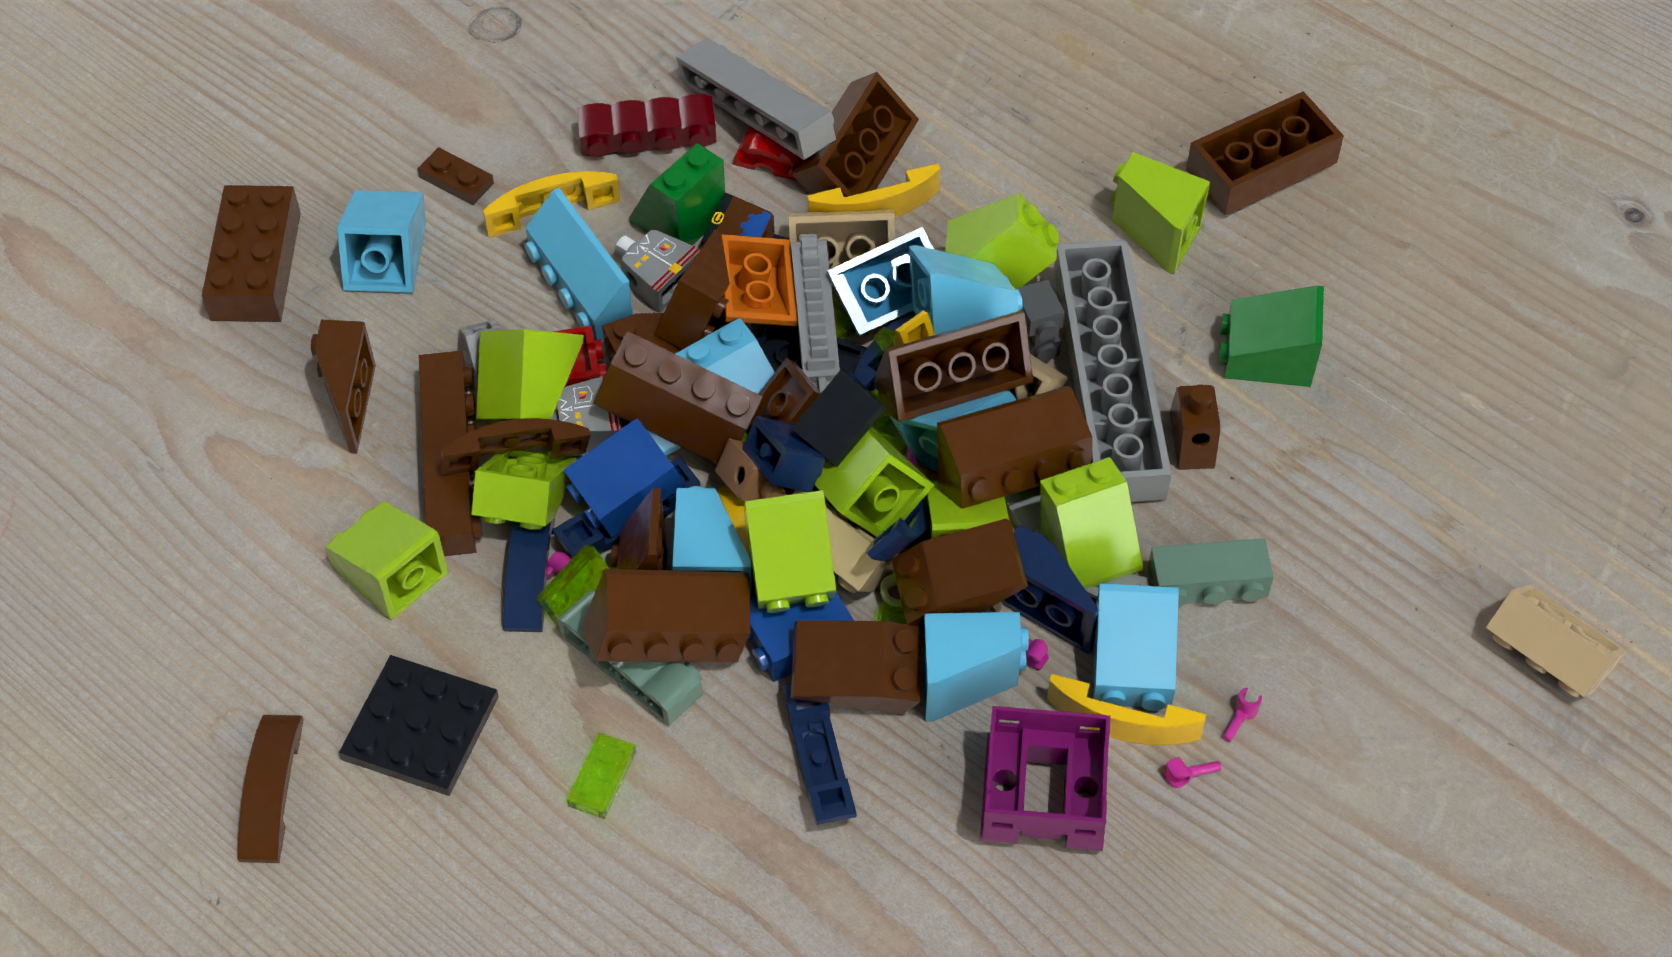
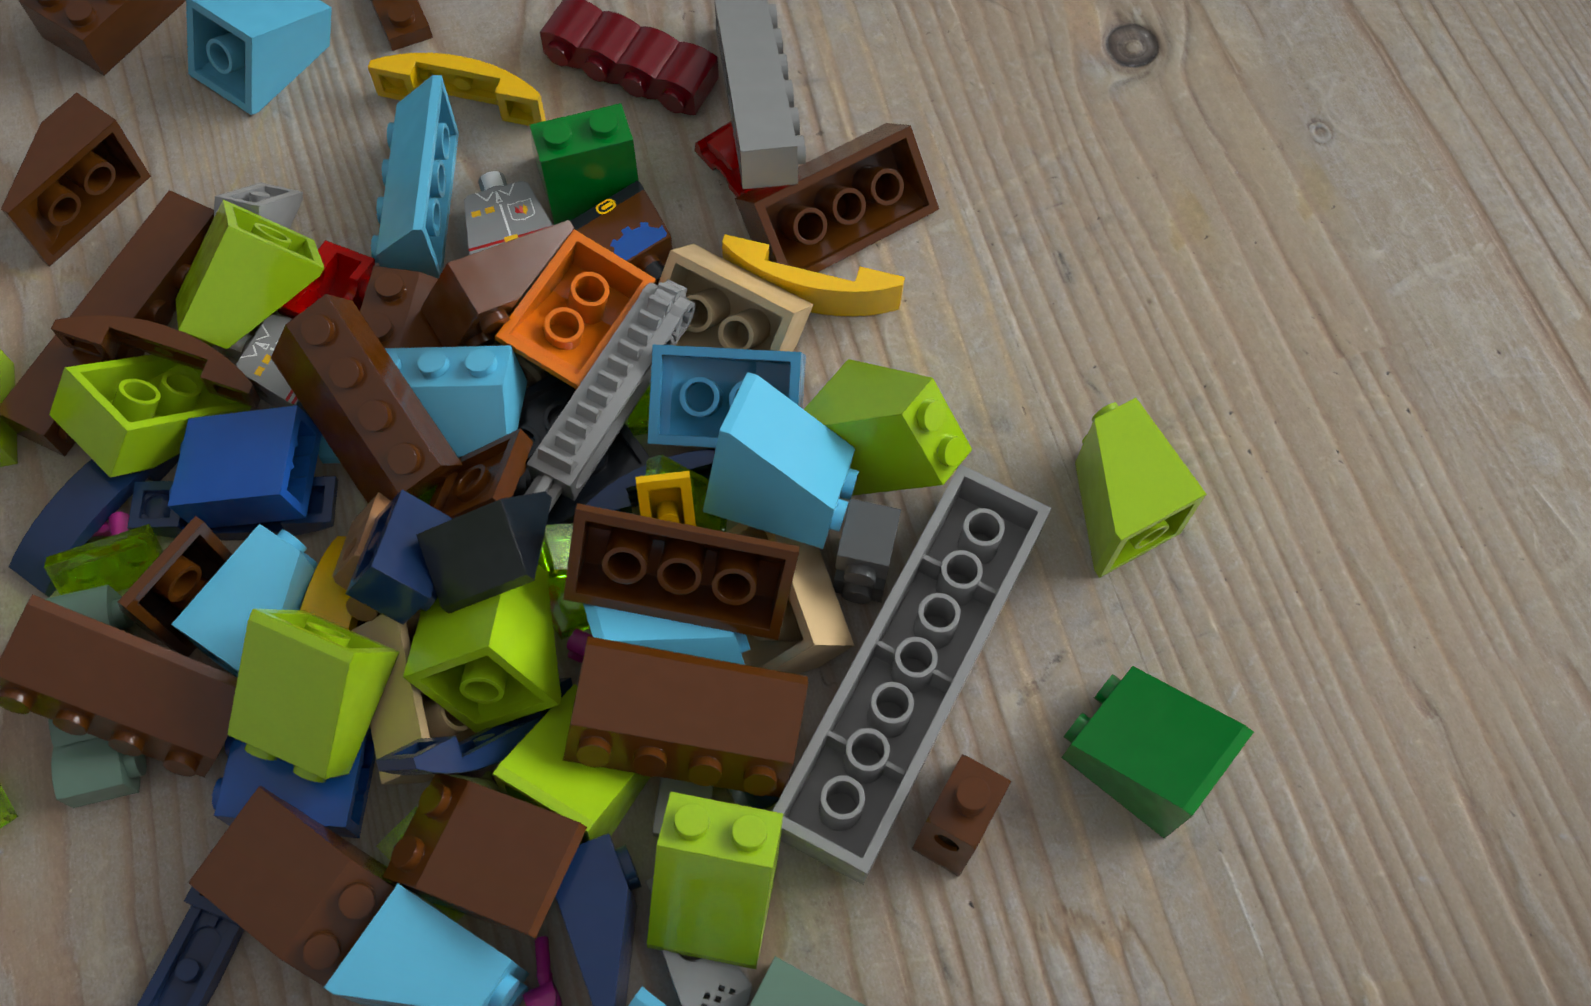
camera: 30 degrees right, 10 degrees up
(1265, 152) = (1324, 485): reddish brown brick -> none

